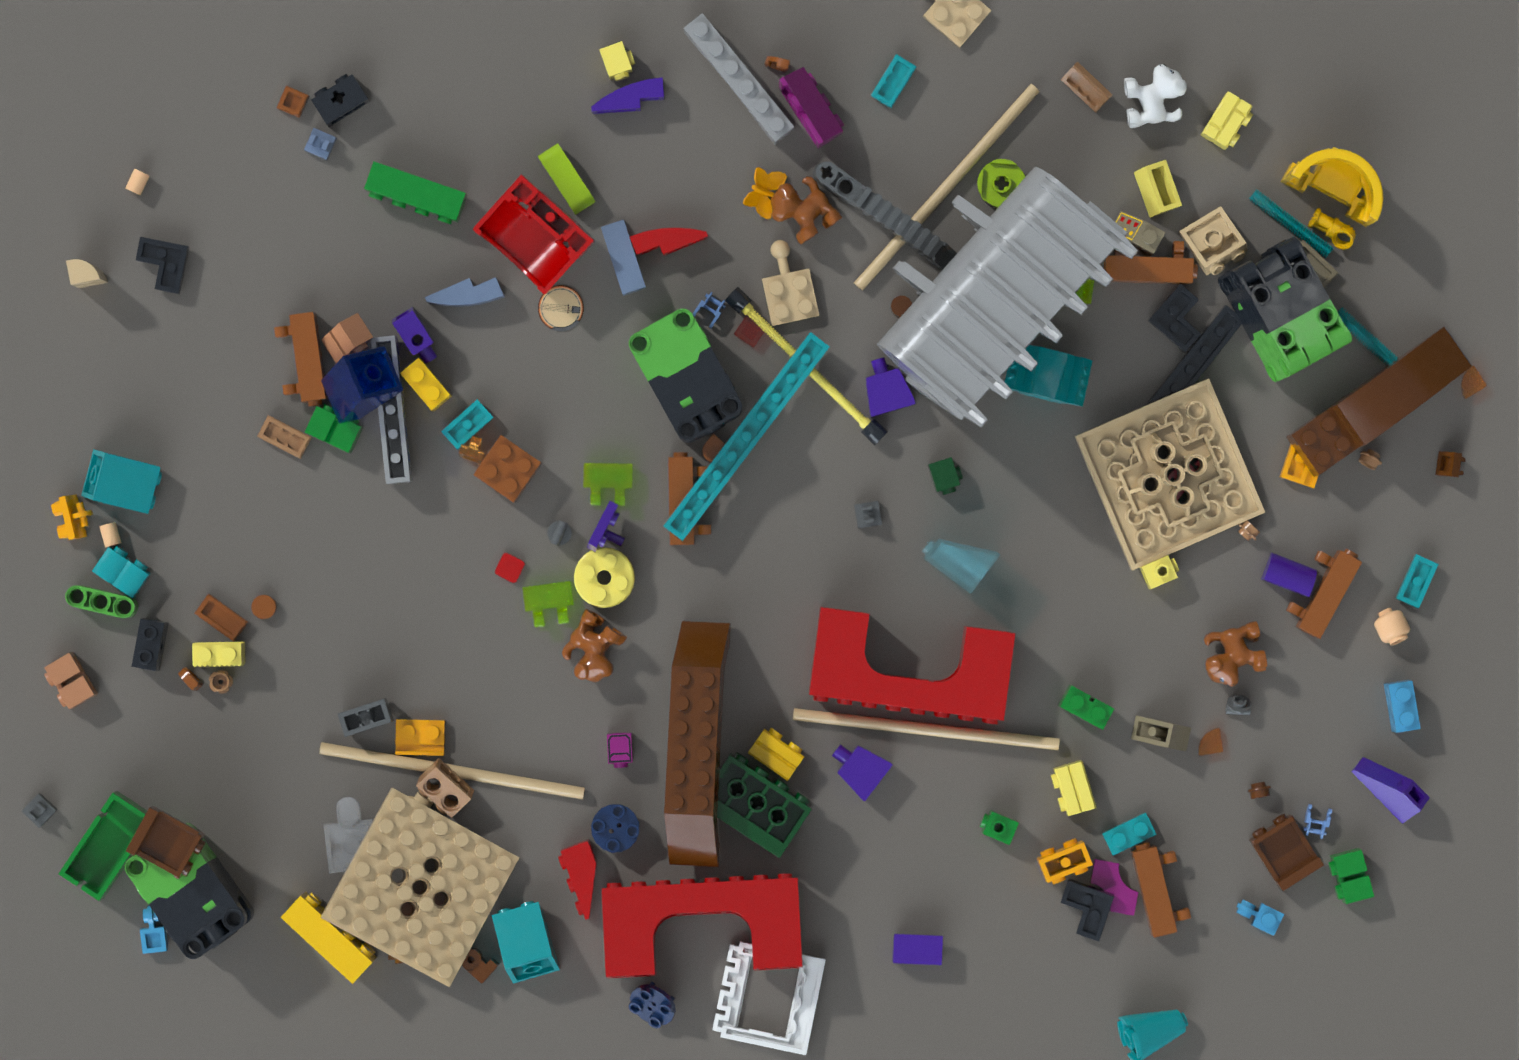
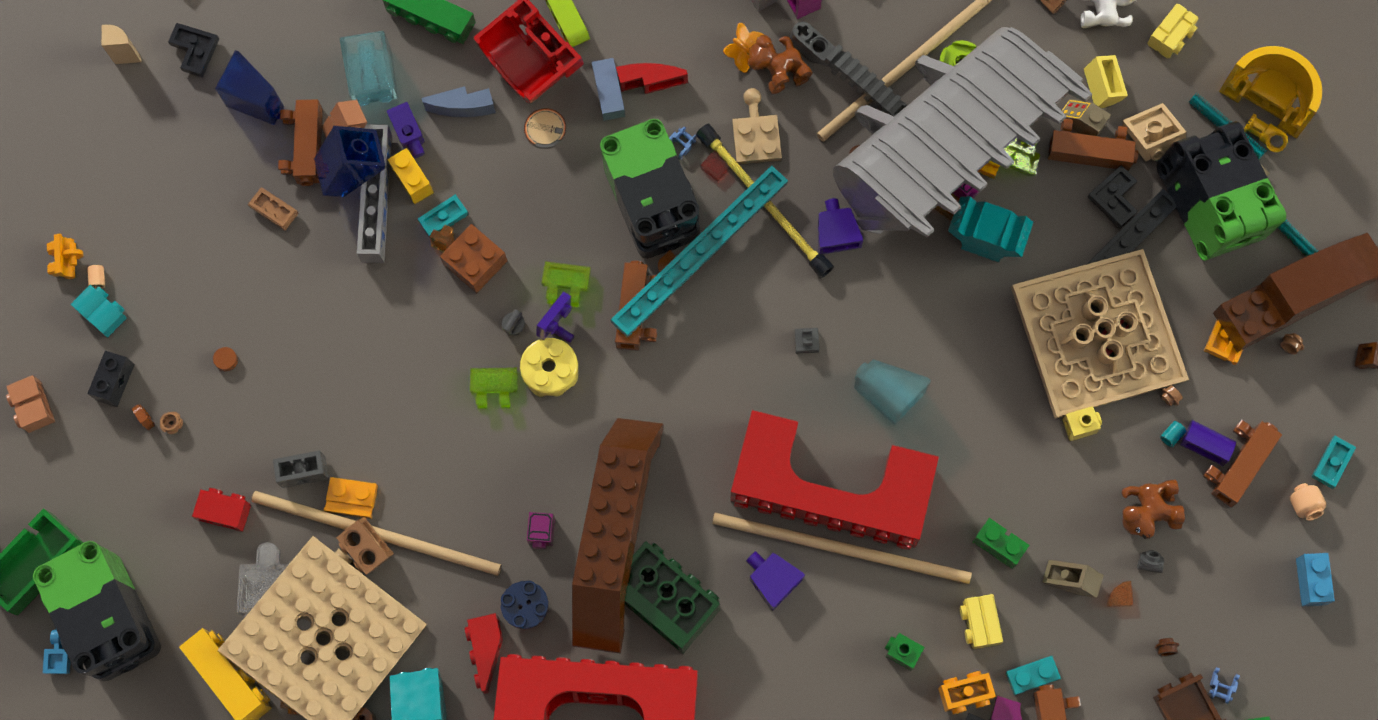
camera: 15 degrees right, 15 degrees down
(90, 599) = (67, 328): bright green beam -> none
(121, 481) = (116, 229): teal slope -> none
(166, 842) = (76, 551): reddish brown panel -> none
(218, 654) = (173, 395): light yellow brick -> none
(221, 617) = (184, 364): dark orange tile -> none
(236, 310) = (248, 91): none -> clear blue slope
(291, 767) = (221, 509): none -> red brick
(326, 427) = (321, 209): green piece -> none
(362, 269) = (369, 67): none -> clear light blue slope
(509, 567) = (462, 350): red piece -> none
(593, 664) = (527, 445): dark orange animal -> none
(776, 754) = (691, 552): yellow brick -> none
(945, 475) = (884, 311): dark green brick -> none
(1252, 570) = (1173, 434): none -> teal hinge
(1394, 790) = (1306, 663): dark purple slope -> none

